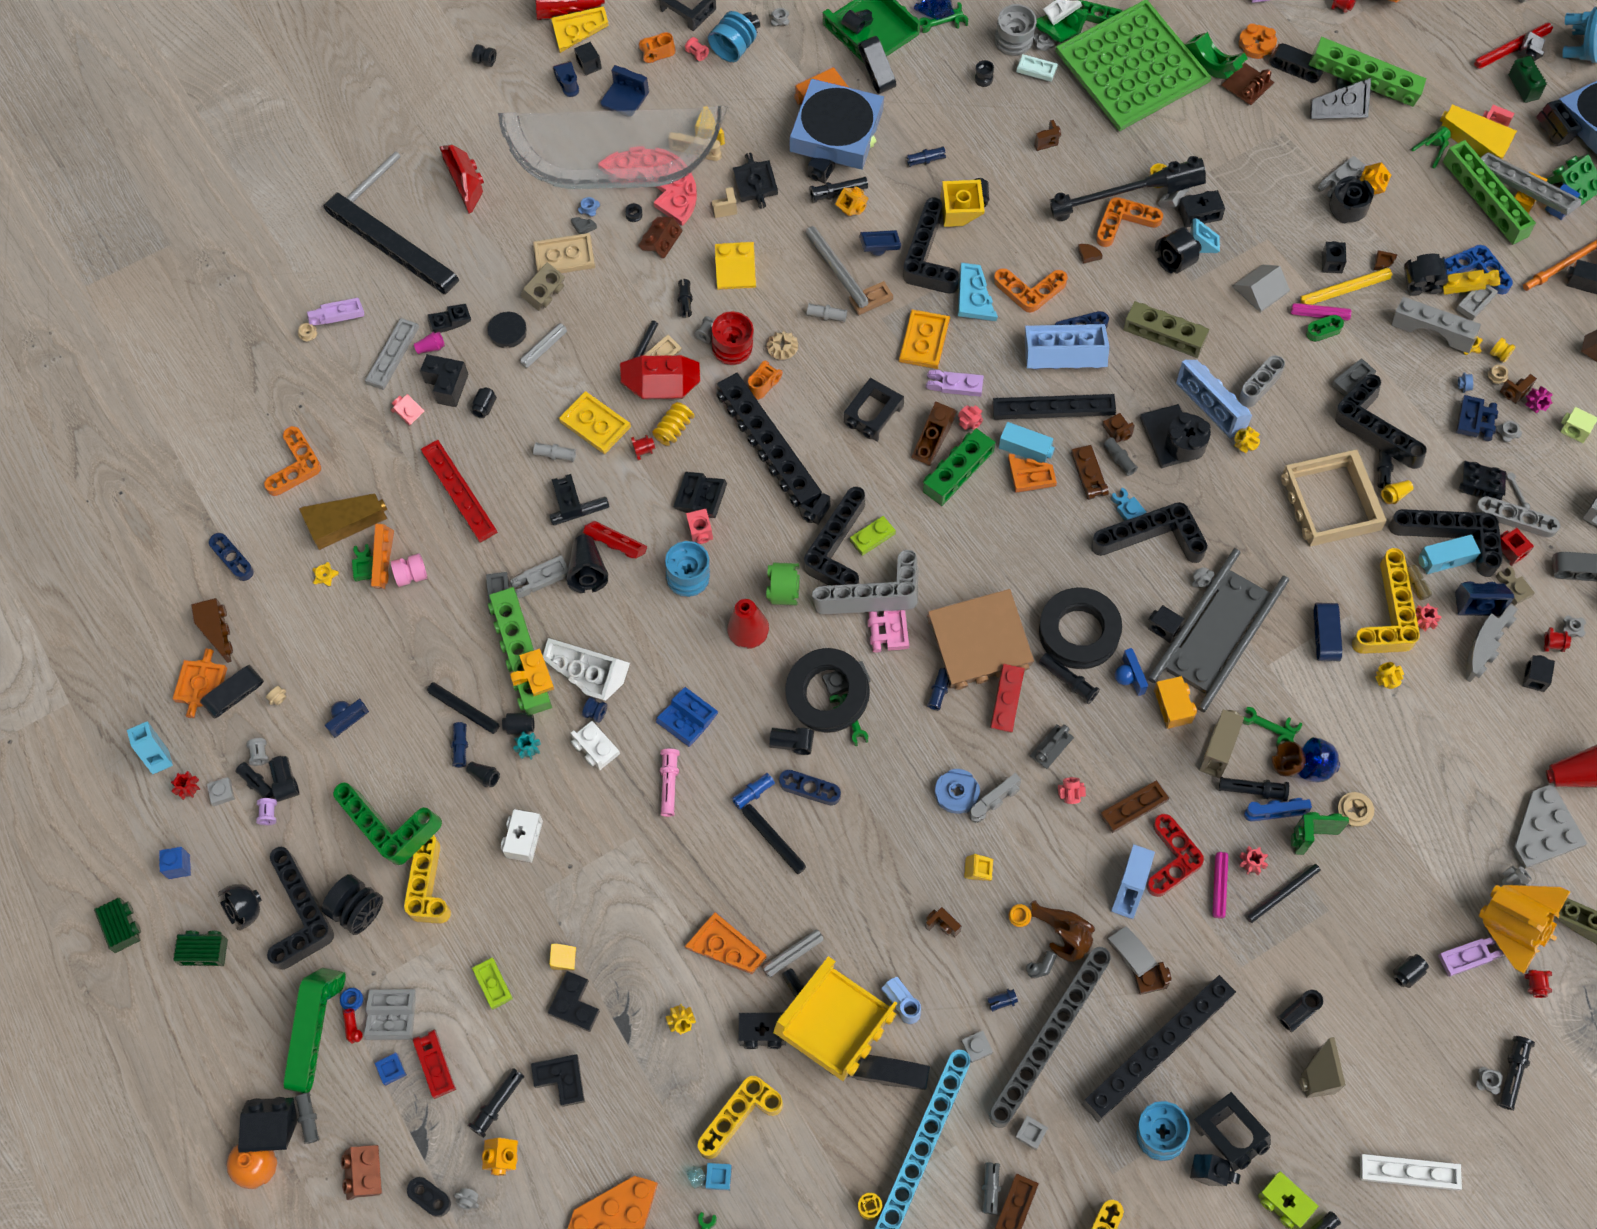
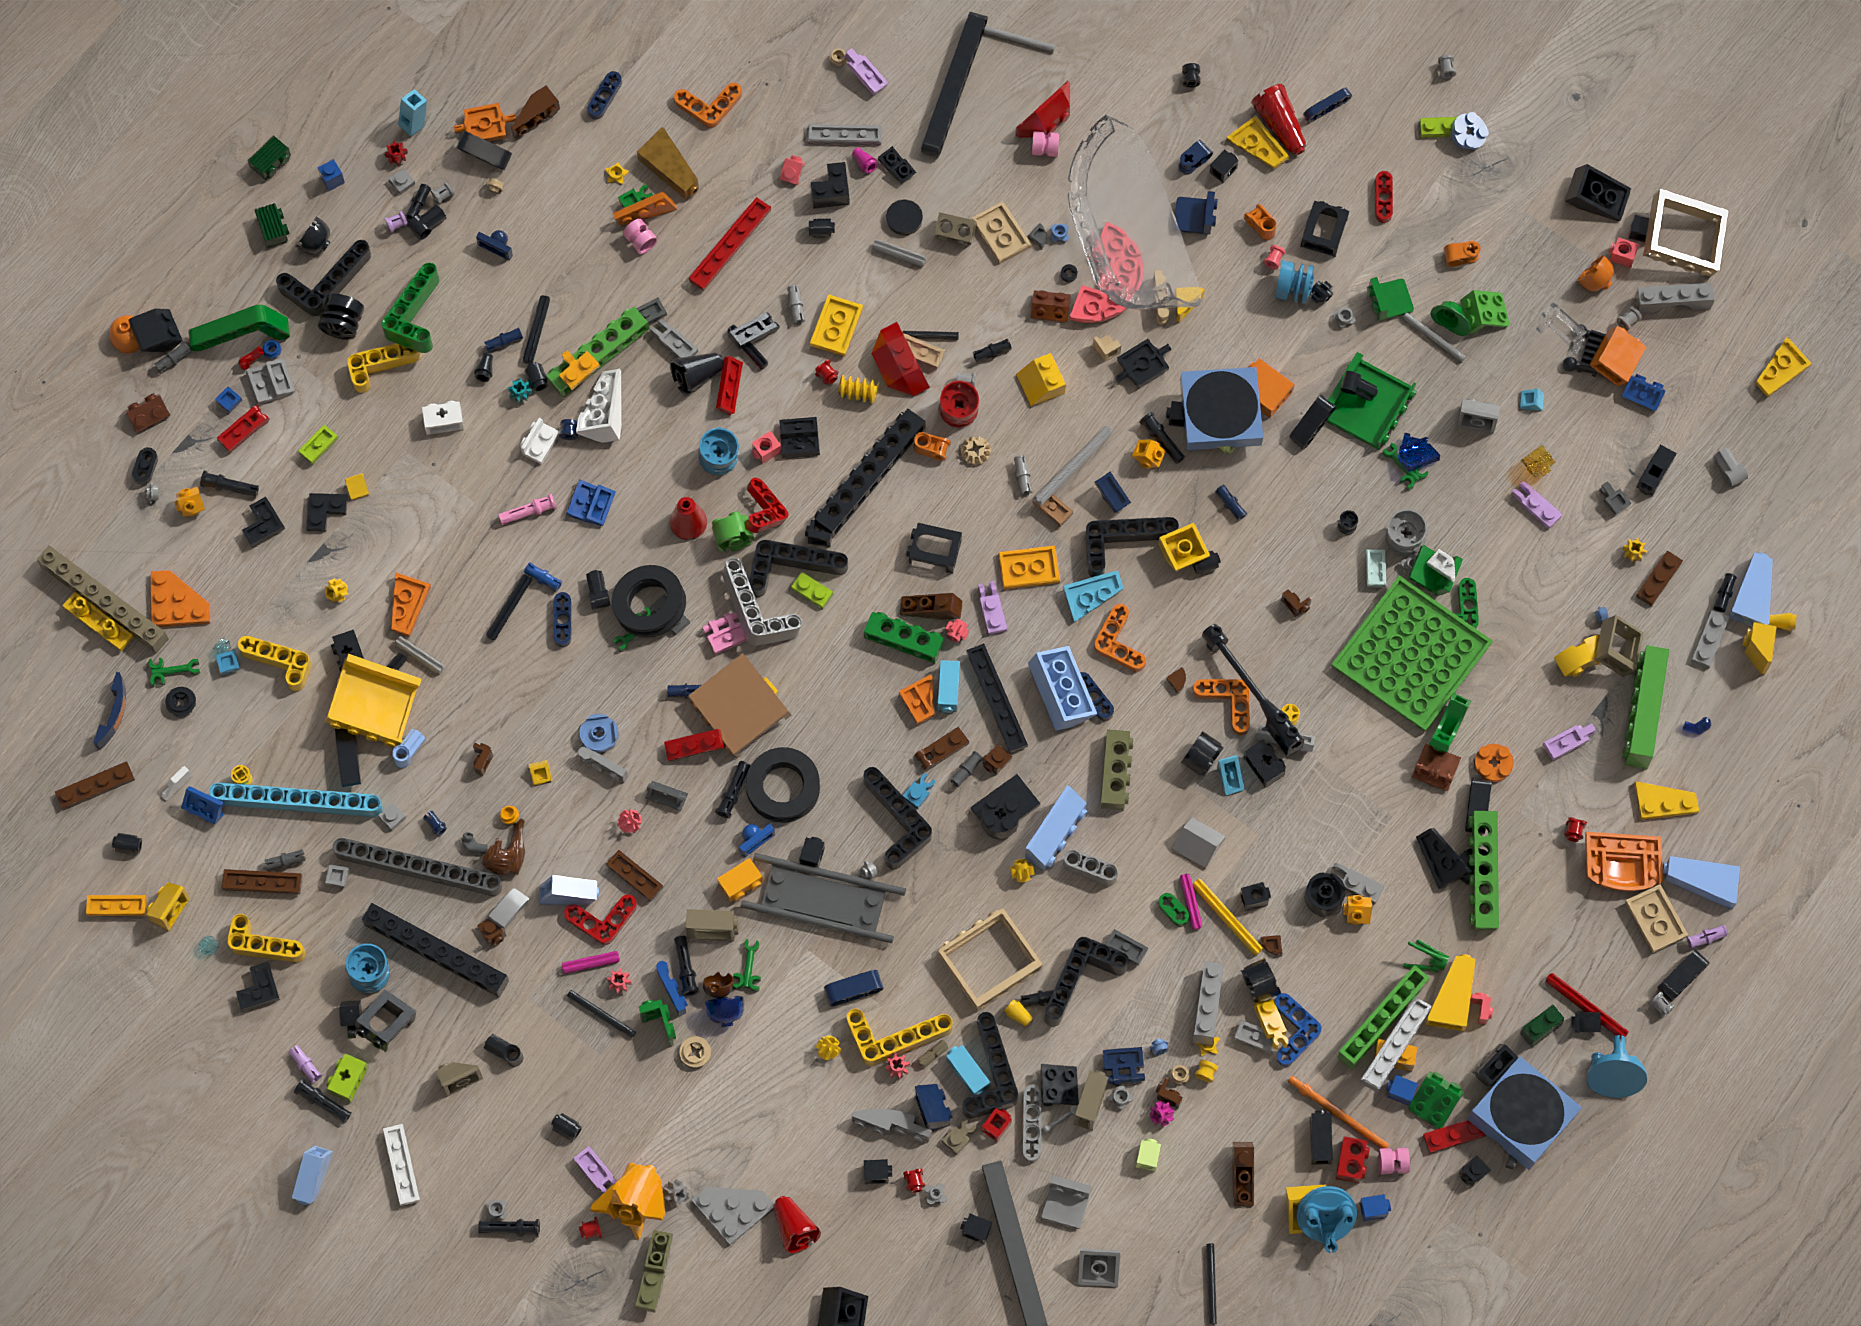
camera: 65 degrees right, 5 degrees up
(493, 186) = (1045, 144): none -> bright pink wheel
(776, 540) = (773, 511): none -> red beam
(1509, 460) = (1091, 1100): none -> dark tan window

